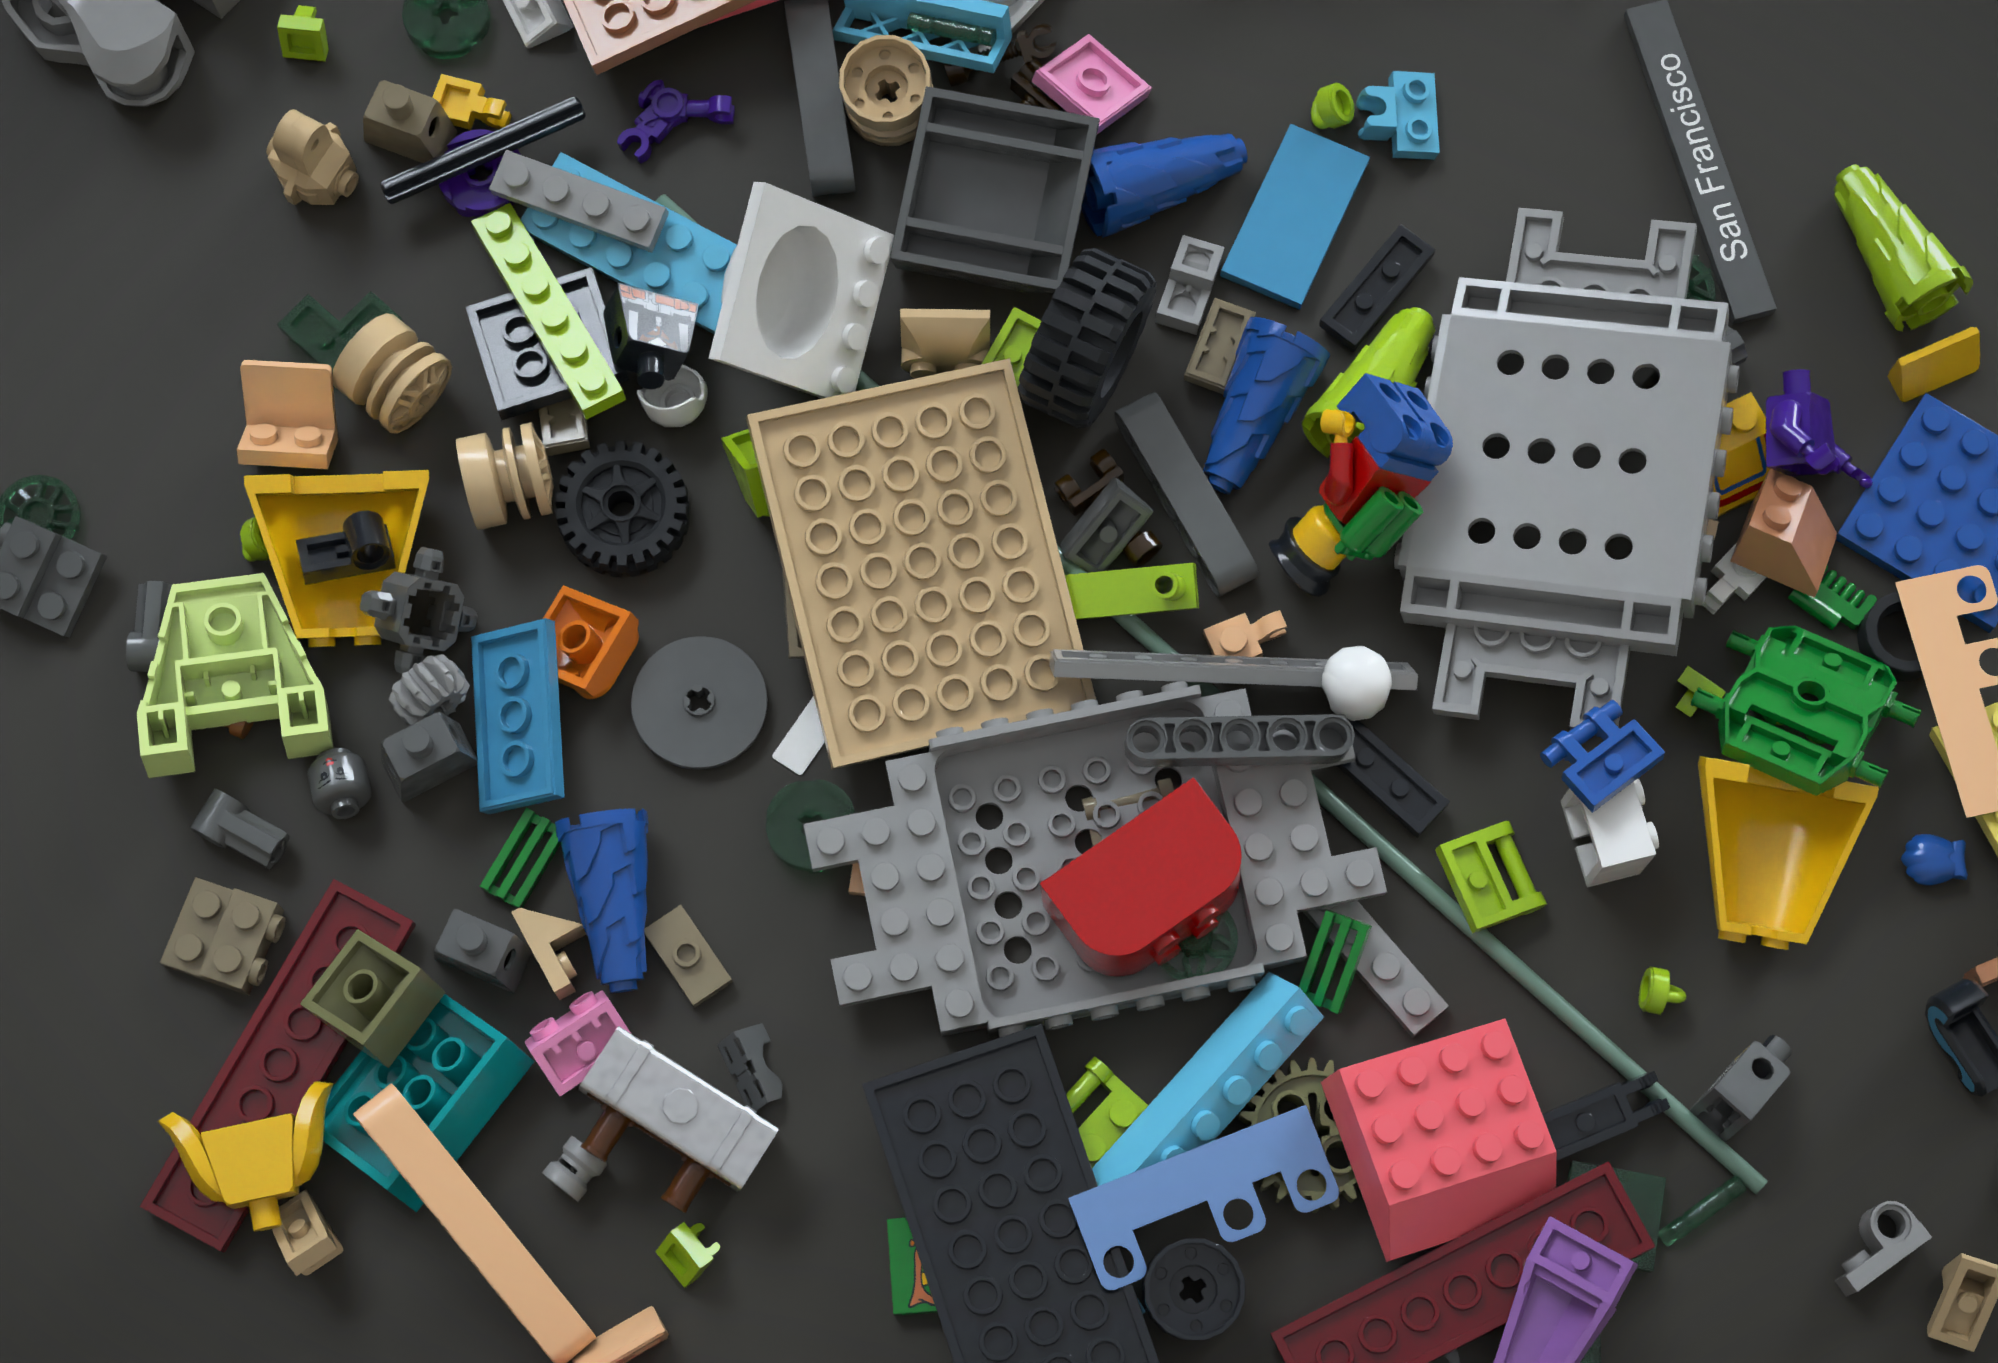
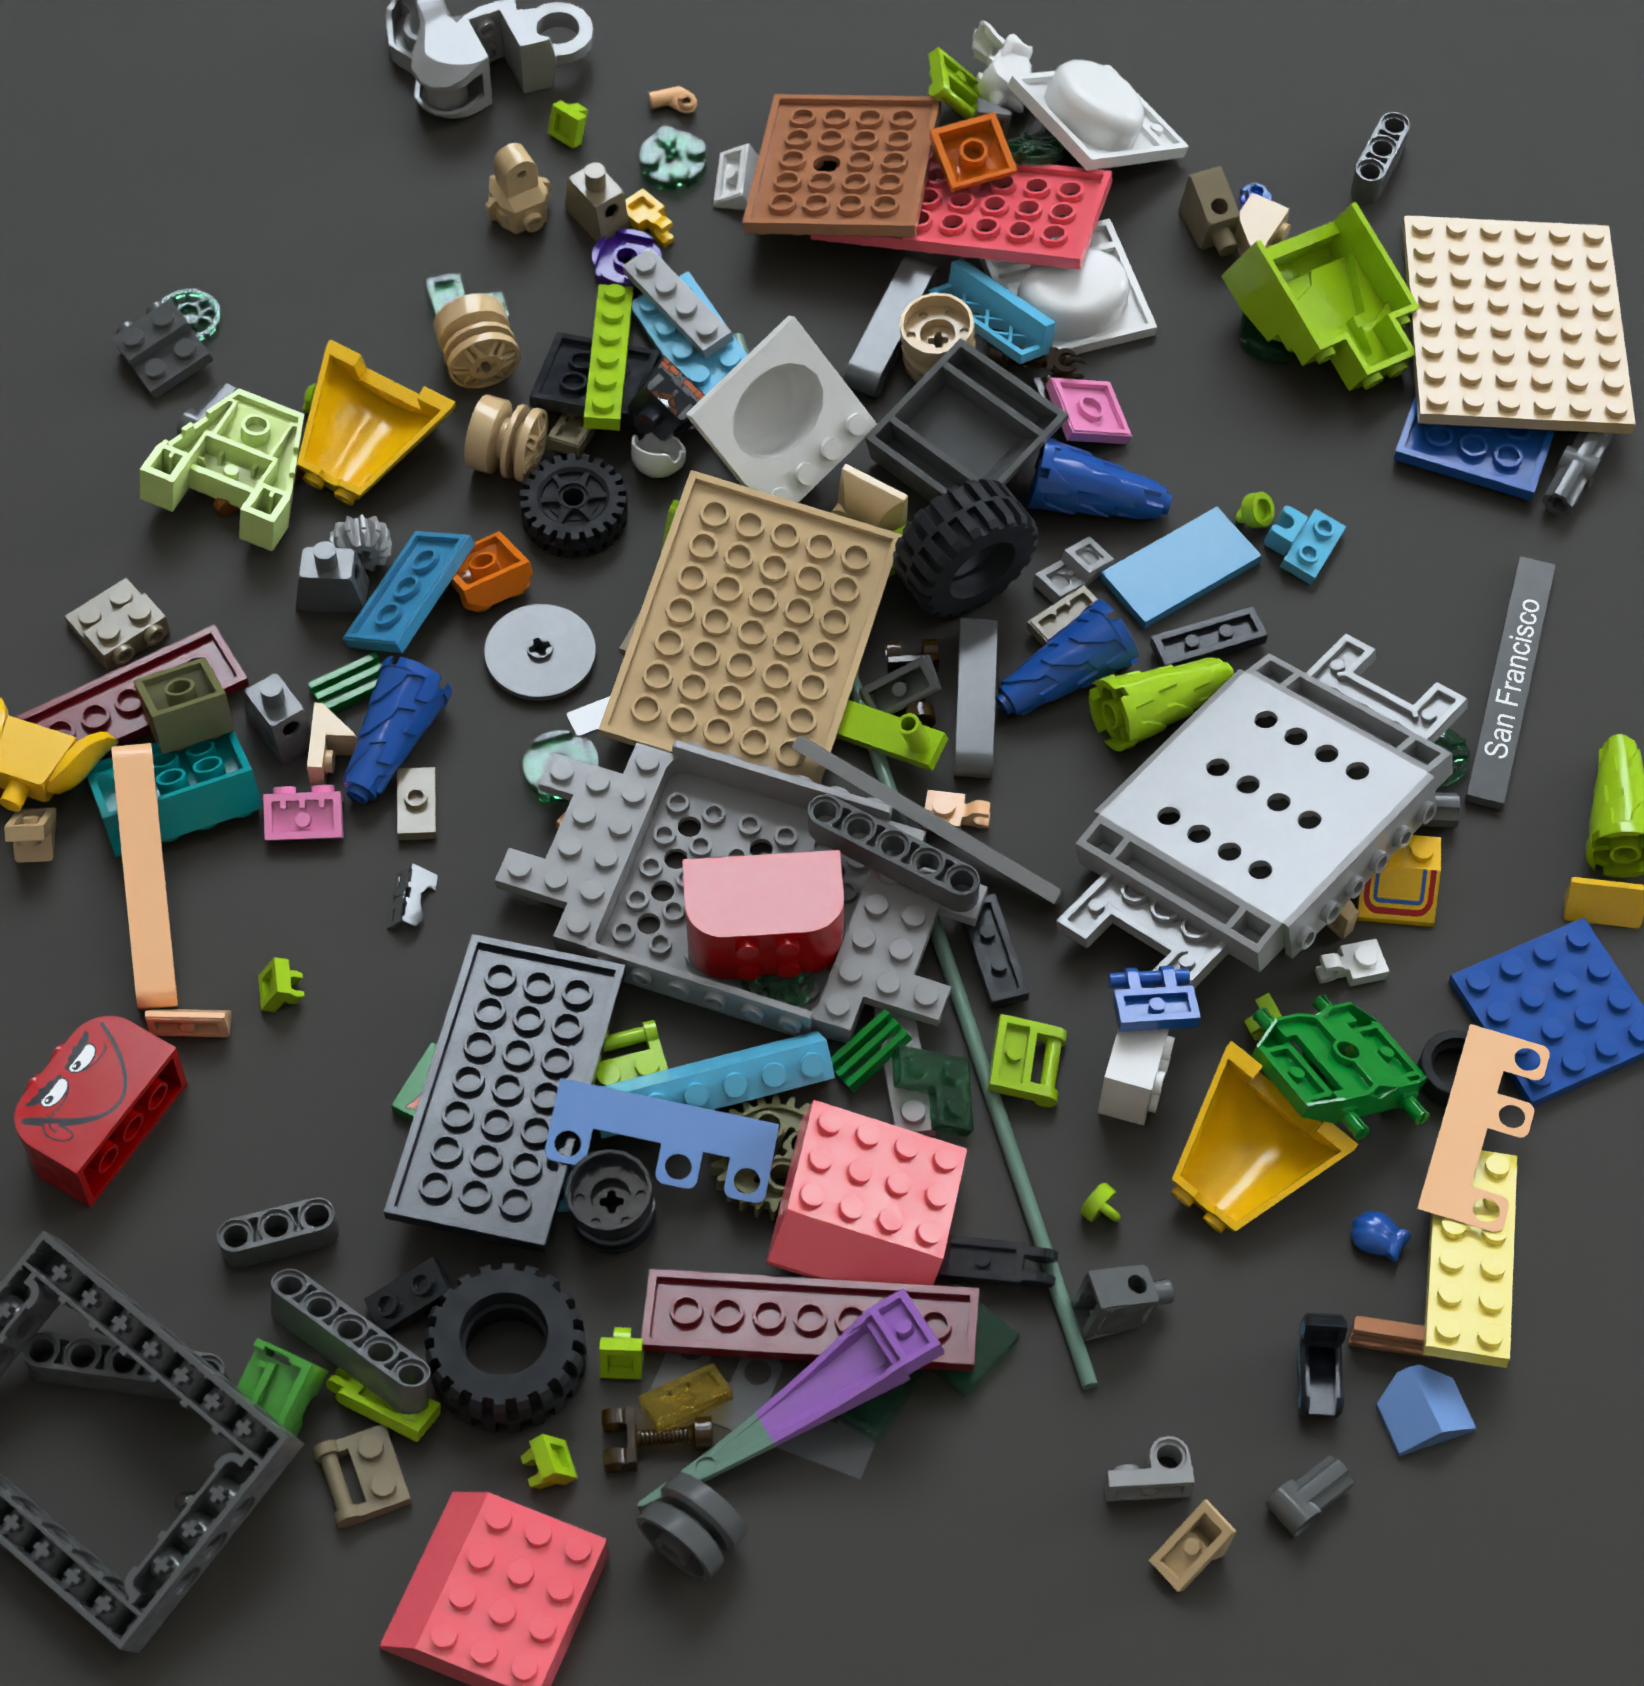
camera: 30 degrees right, 15 degrees down
(230, 824) = (174, 559): dark grey piece -> none
(288, 415) = (393, 331): light nougat bracket -> none
(339, 783) = (262, 568): dark grey head -> none
(356, 551) = (368, 431): black plate -> none
(391, 608) = (371, 469): dark grey piece -> none
(482, 150) = (635, 242): black axle -> none
(579, 1159) = (241, 889): light grey wheel -> none
(668, 109) = (781, 285): dark purple piece -> none
(677, 1110) = (335, 883): flat silver piece -> none
(951, 29) = (1008, 323): clear green wheel -> none
(1356, 682) = (1010, 870): white hair -> none
(1368, 481) = (1103, 733): piece -> none
(1426, 949) = (944, 1079): none -> clear green plate
(1702, 1211) = (1031, 1376): clear green wheel -> none
(1786, 534) = (1406, 947): nougat slope -> none
(1802, 433) = (1461, 887): dark purple torso -> none
(1830, 607) = (1408, 1013): green piece -> none

